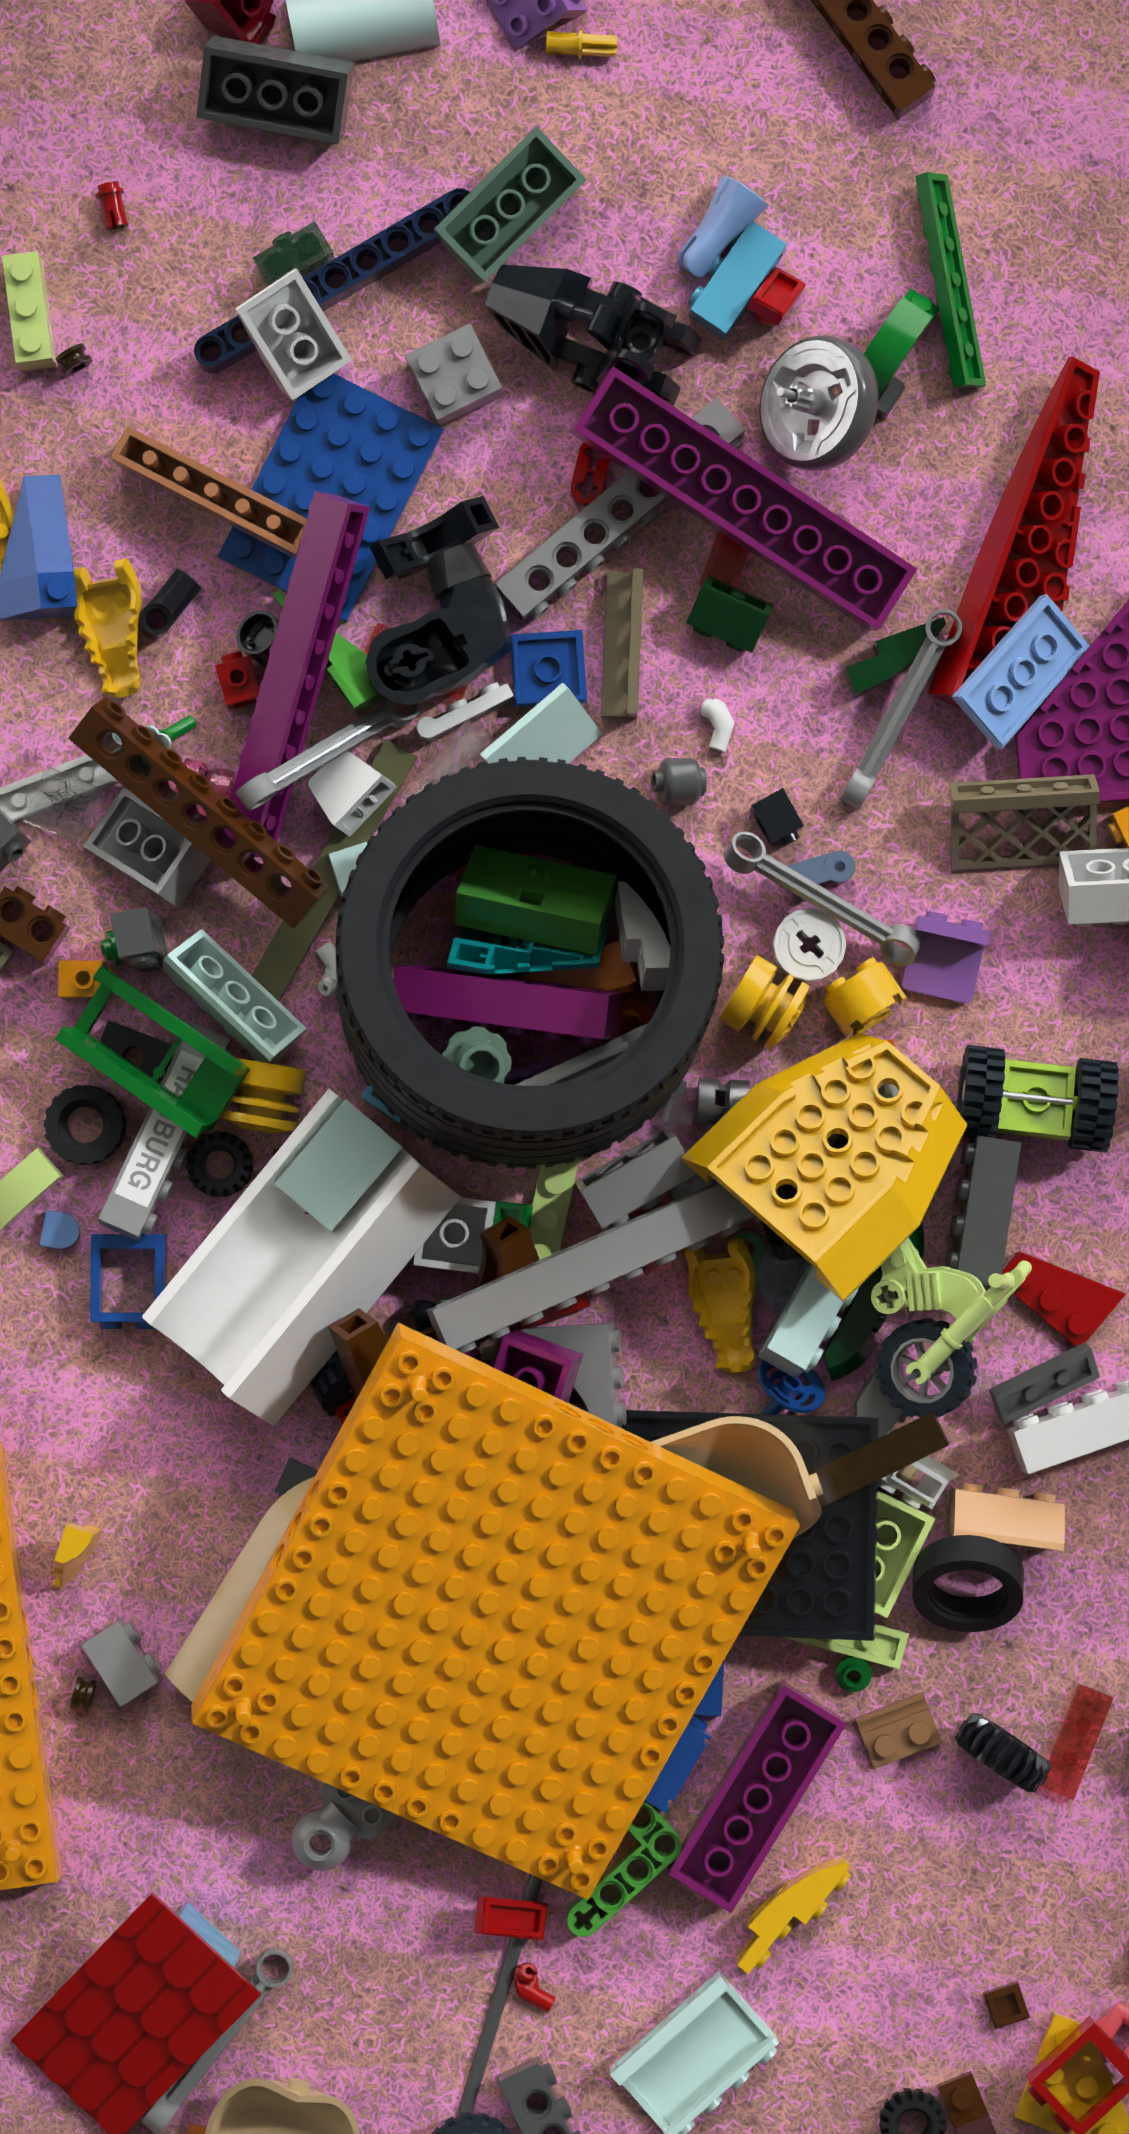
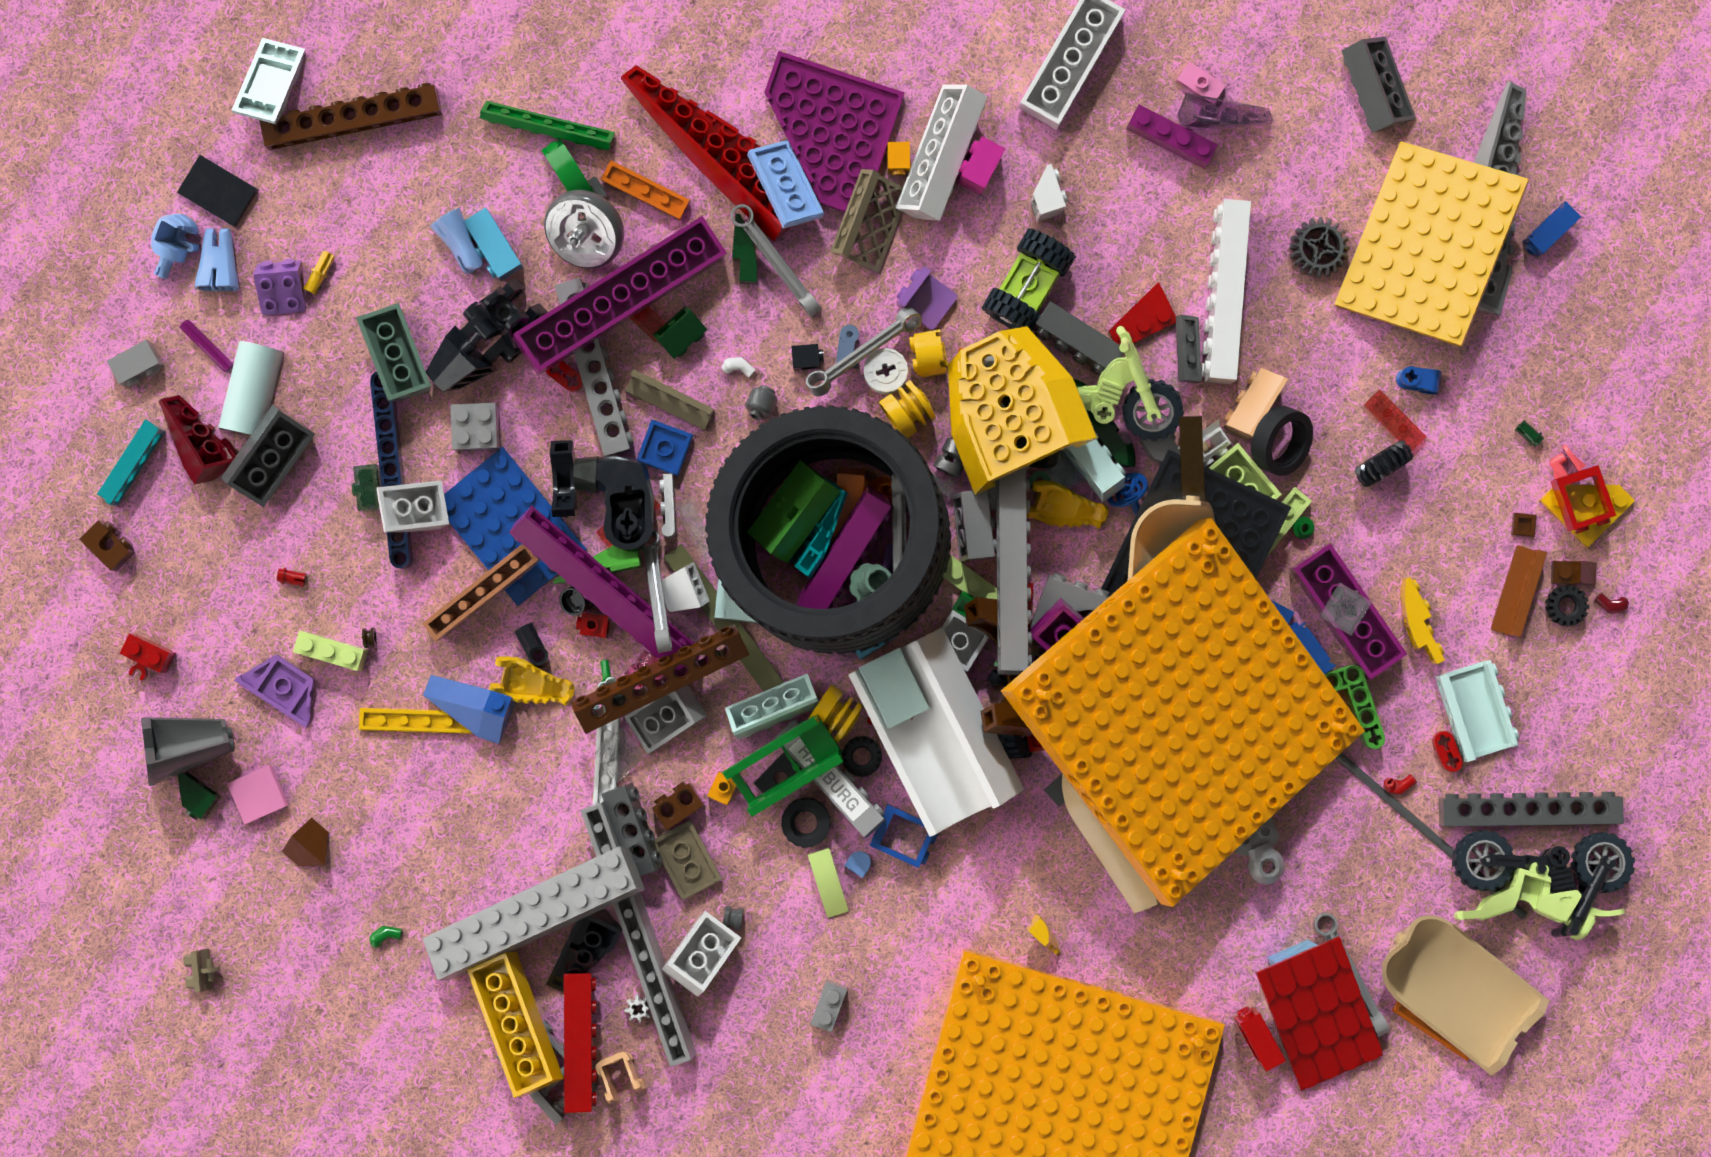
camera: 70 degrees left, 0 degrees up
(59, 1942) = (1259, 1038): none -> red window
(83, 1694) = (1125, 964): dark brown bush -> none
(109, 949) = (713, 761): green plate -> none
(122, 1661) = (1117, 934): light grey piece -> none
(140, 938) = (716, 743): dark grey brick -> none
(328, 984) = (774, 642): white arm -> none
(510, 1918) = (1355, 779): red tile -> none
(550, 730) = (702, 462): light aqua tile -> none
(607, 2032) = (1442, 753): none -> red beam
(641, 938) = (843, 461): white slope -> none
(757, 1790) = (1345, 609): none -> clear piece
(775, 298) = (513, 227): red tile -> none
(898, 1730) = (1345, 516): medium nougat plate -> none
(902, 2040) = (1518, 591): none -> dark orange panel
(919, 469) = (645, 190): none -> orange plate

